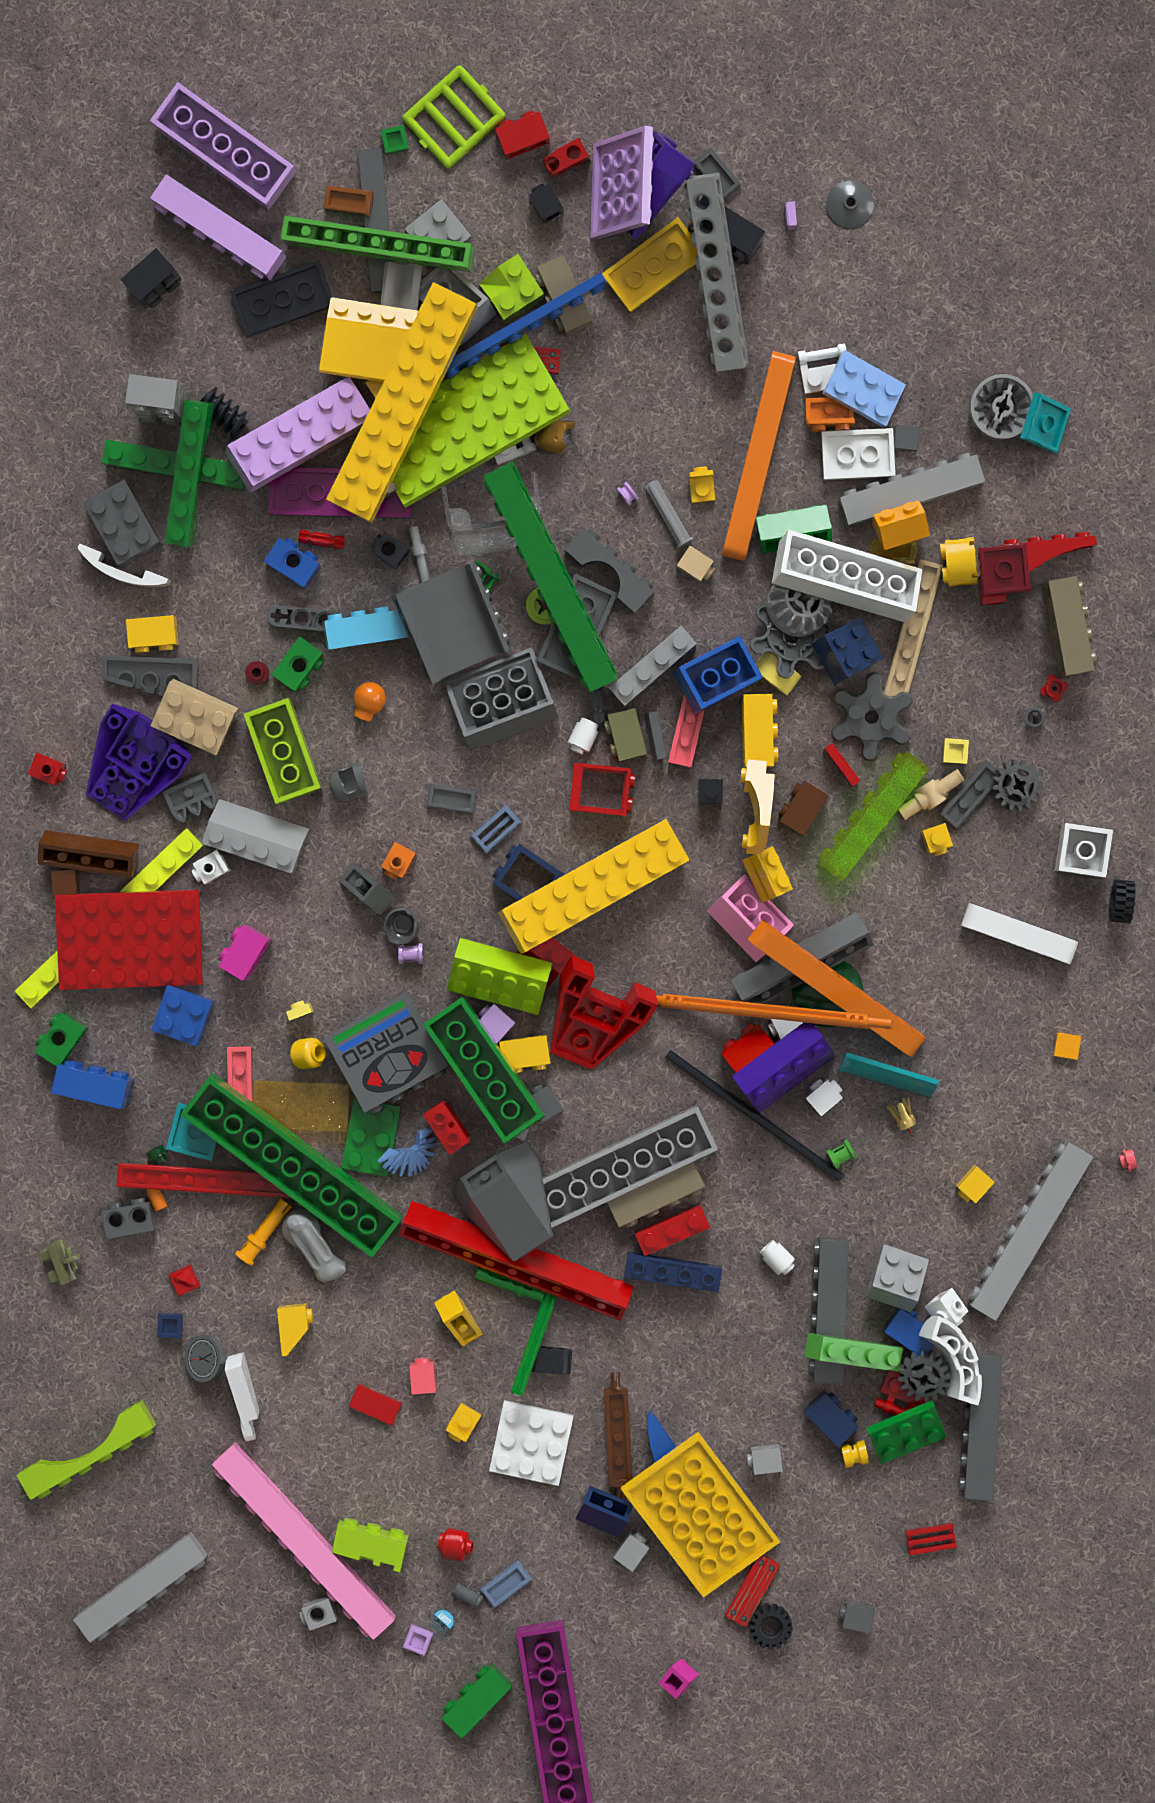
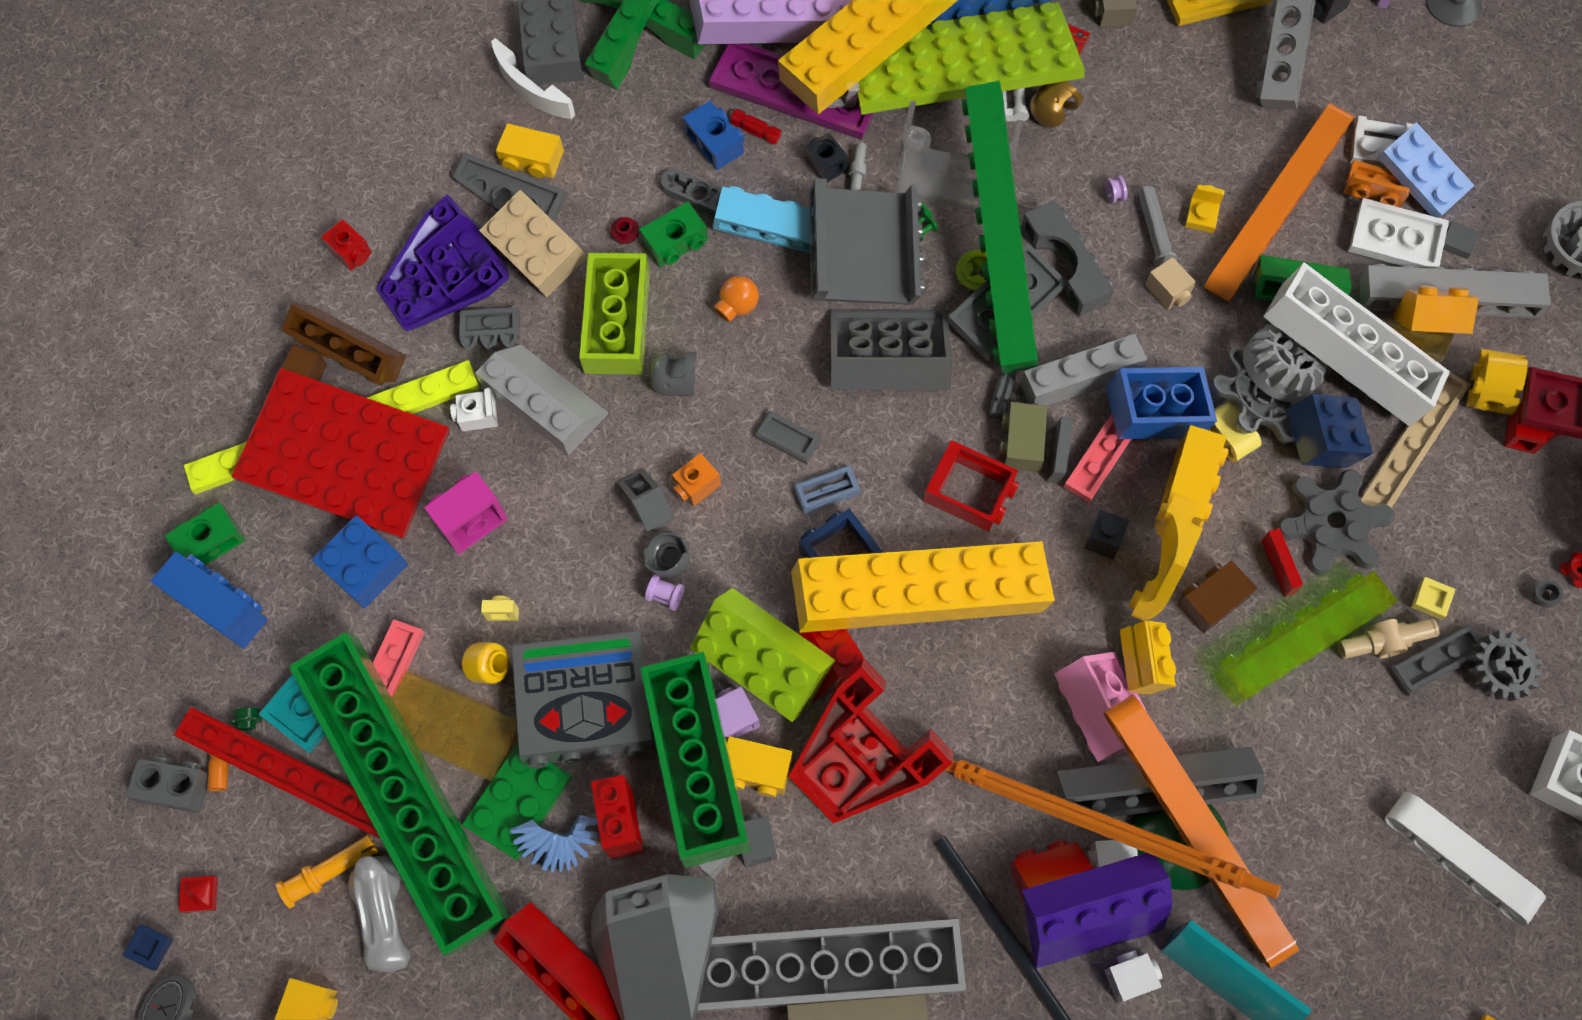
camera: 20 degrees right, 20 degrees down
(63, 1262) = (60, 807): olive hips -> none
(583, 736) = (972, 420): white brick -> none
(937, 839) = (1382, 694): yellow brick -> none

